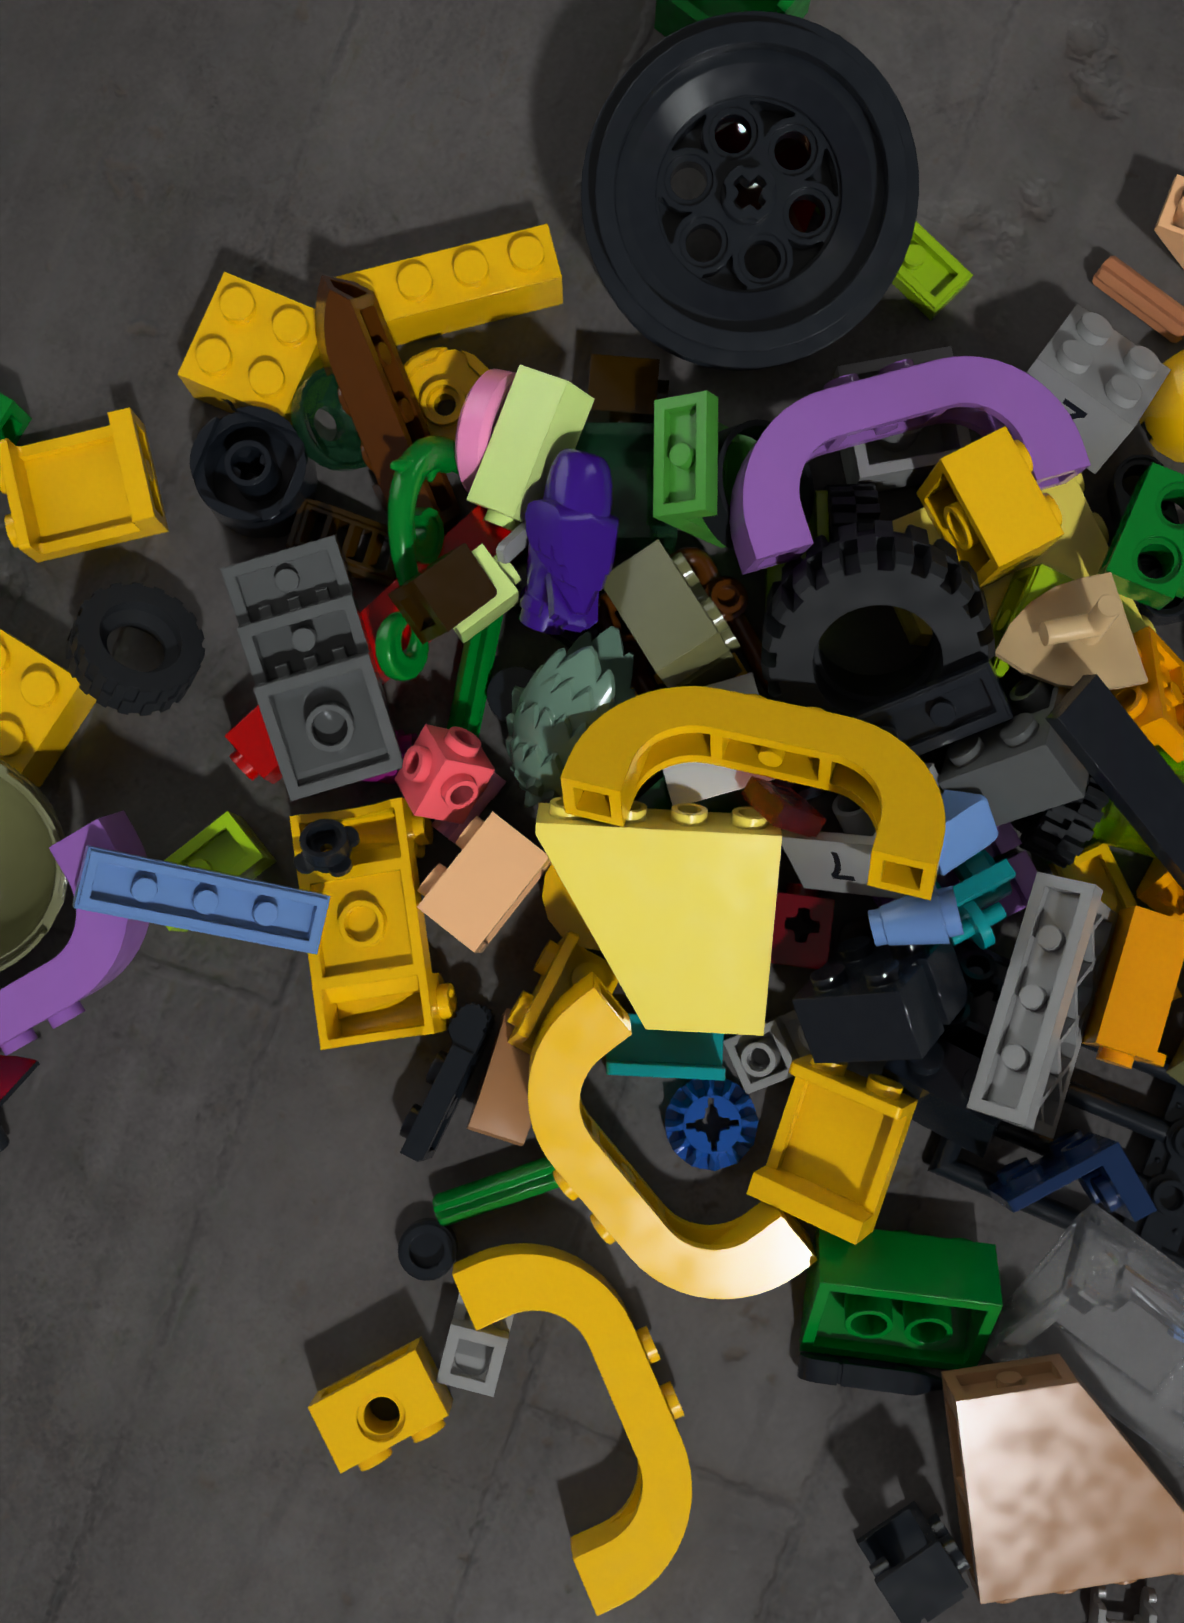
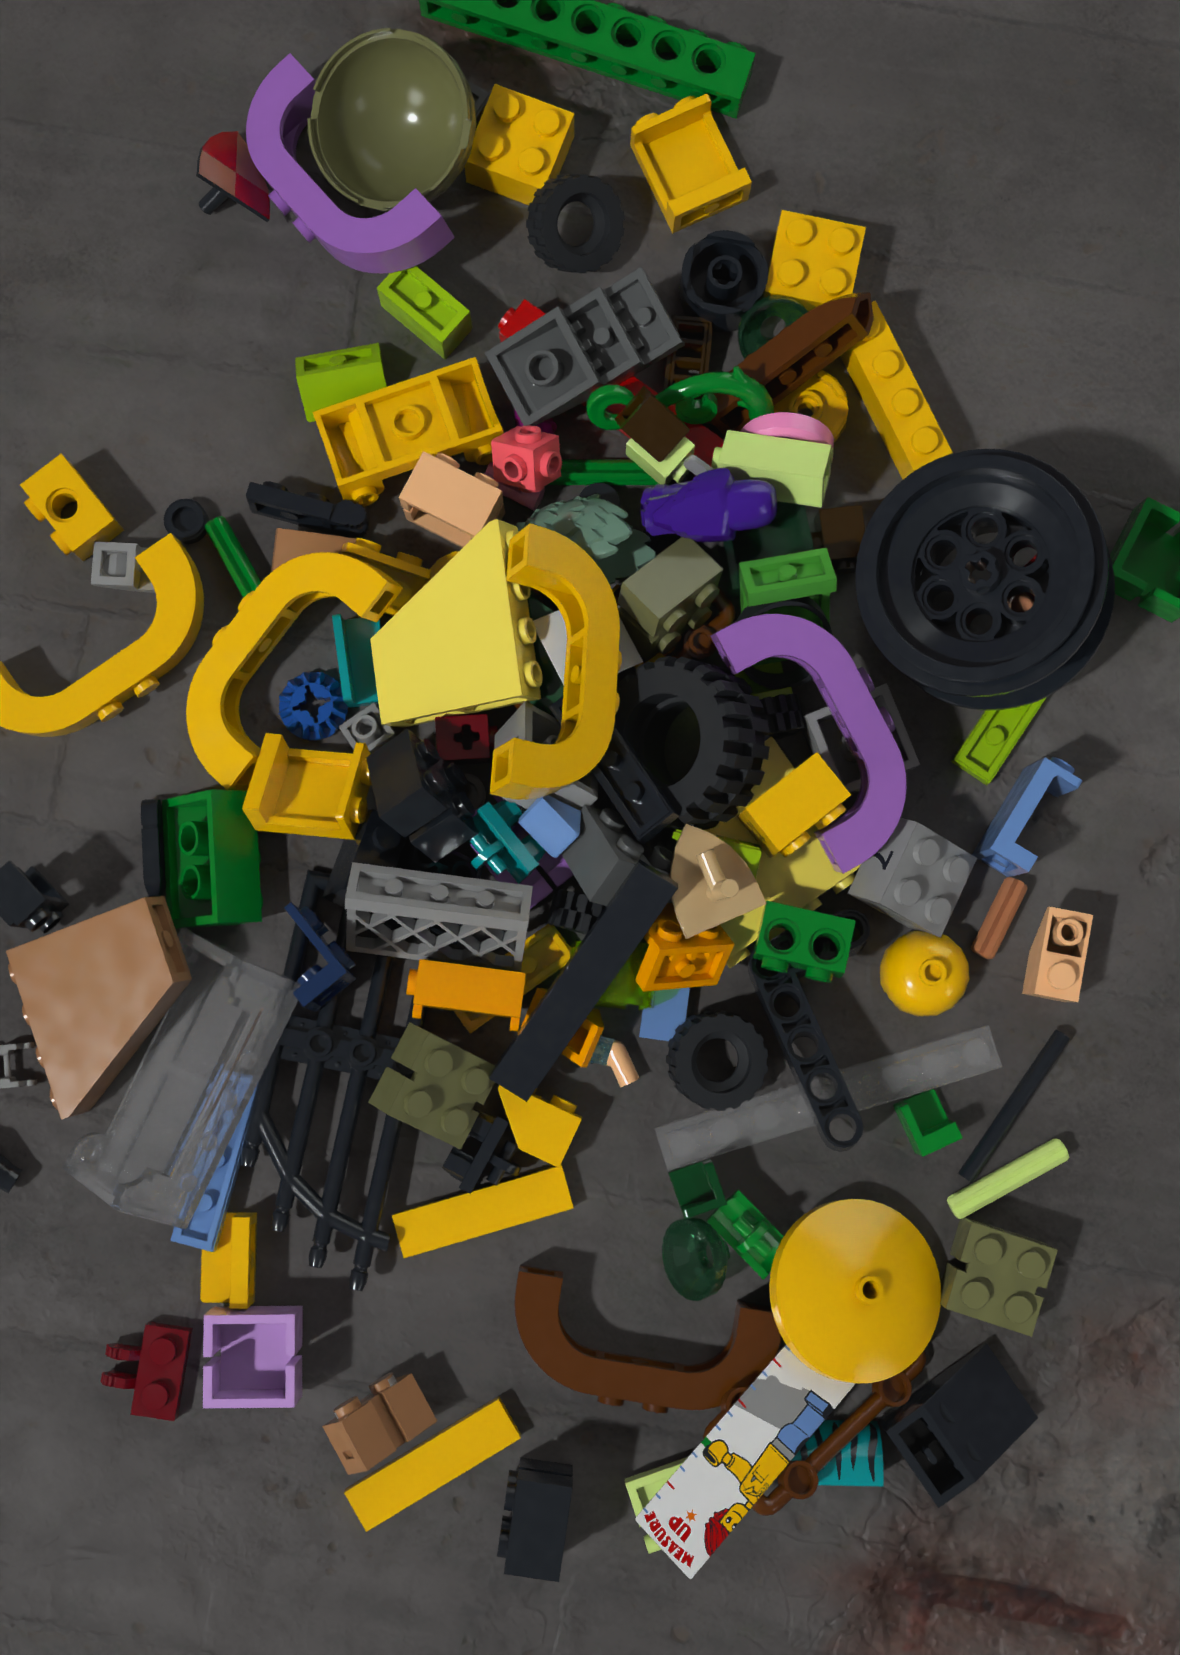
camera: 75 degrees right, 0 degrees up
(200, 900) = (399, 302): medium blue tile -> none
(274, 1006) = (338, 376): none -> lime panel
(323, 836) = (462, 378): black plate -> none
(783, 807) = (544, 695): clear red tile -> none
(917, 920) = (481, 810): medium blue cone -> none
(1027, 239) = (998, 843): none -> medium blue panel

